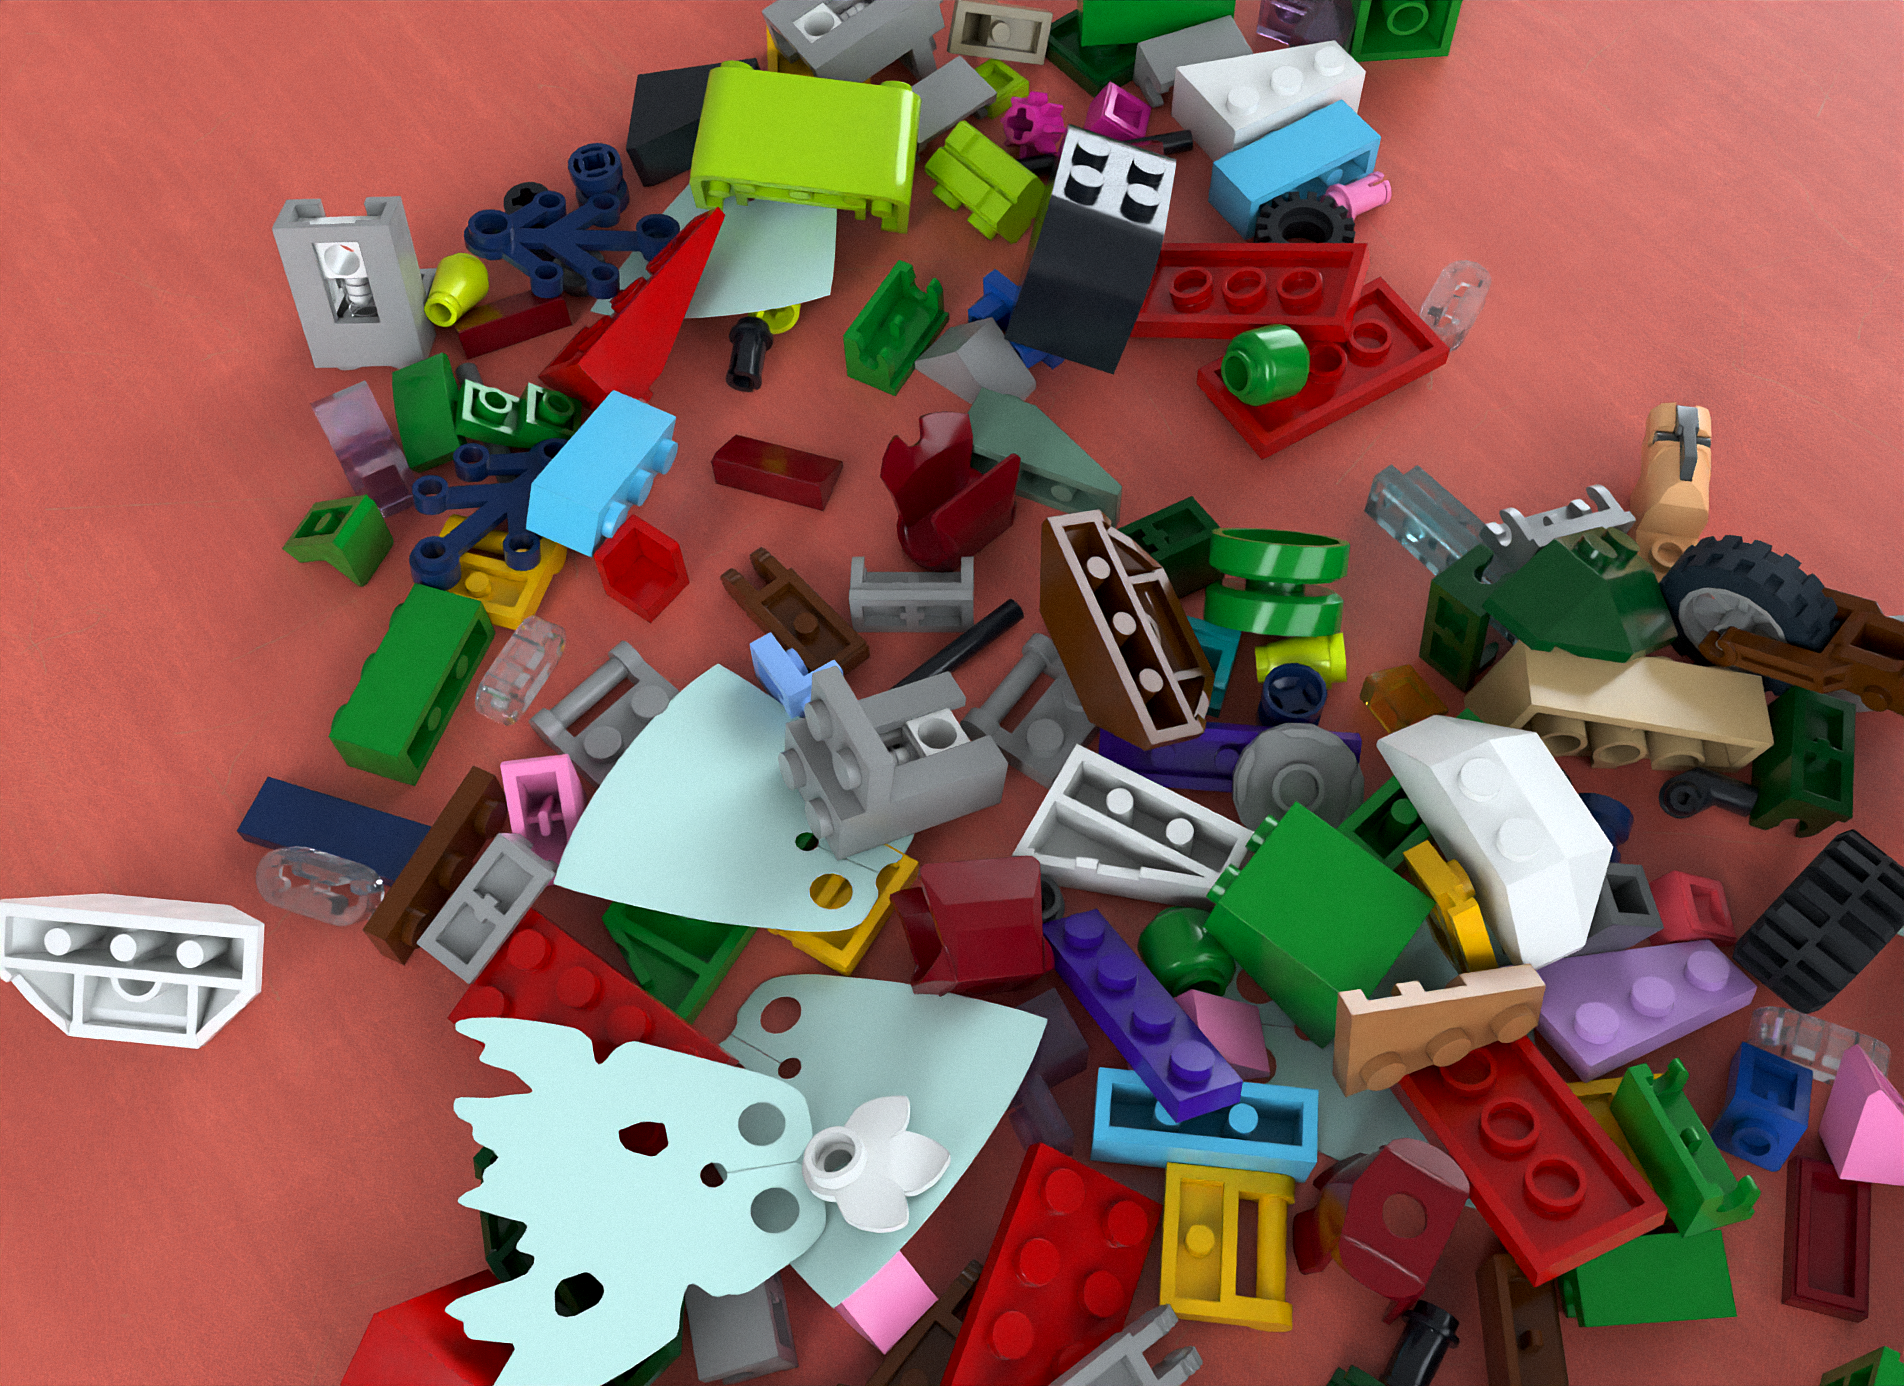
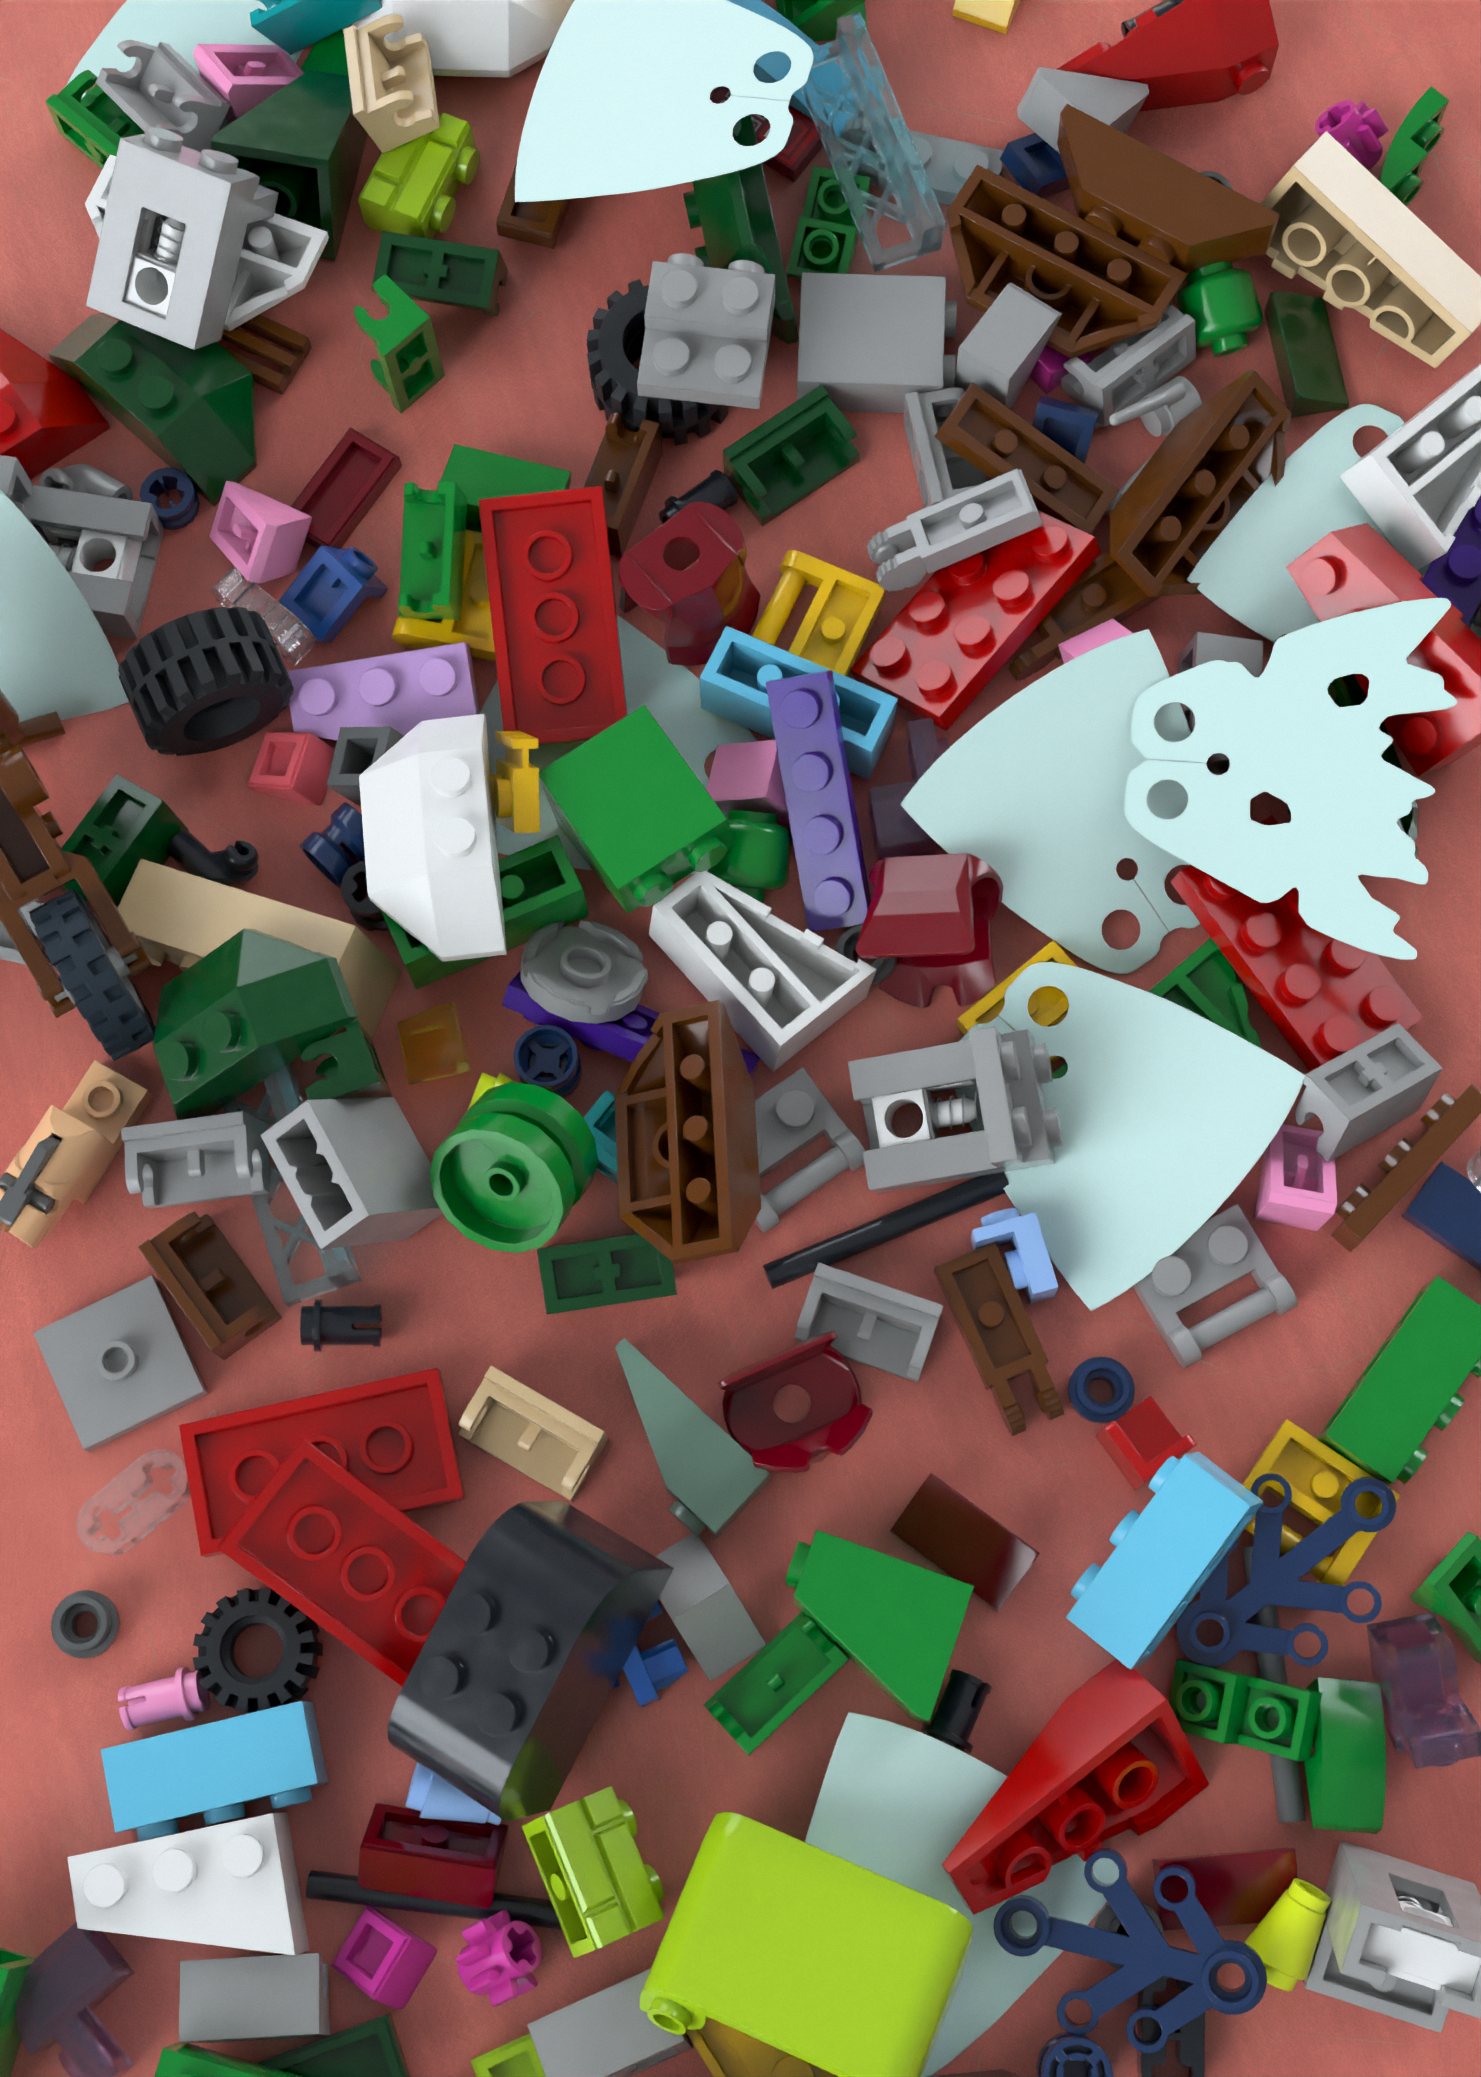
camera: 160 degrees left, 15 degrees up
(520, 670) = (1295, 1364): clear beam -> none
(692, 592) = (1113, 1373): none -> dark blue plate
(828, 372) = (882, 1615): none -> green slope
(881, 1166) = (1075, 721): white plate -> none
(1161, 441) = (532, 1433): none -> tan hinge
(1266, 365) = (398, 1444): green head -> none
(1361, 459) = (335, 1325): none -> black pin
(1409, 526) = (354, 1170): none -> light grey brick
(1418, 1029) = (575, 695): medium nougat wing -> none
(1442, 224) = (65, 1624): none -> dark grey plate
(1488, 452) = (210, 1284): none -> reddish brown hinge
(1524, 389) = (120, 1363): none -> light grey plate

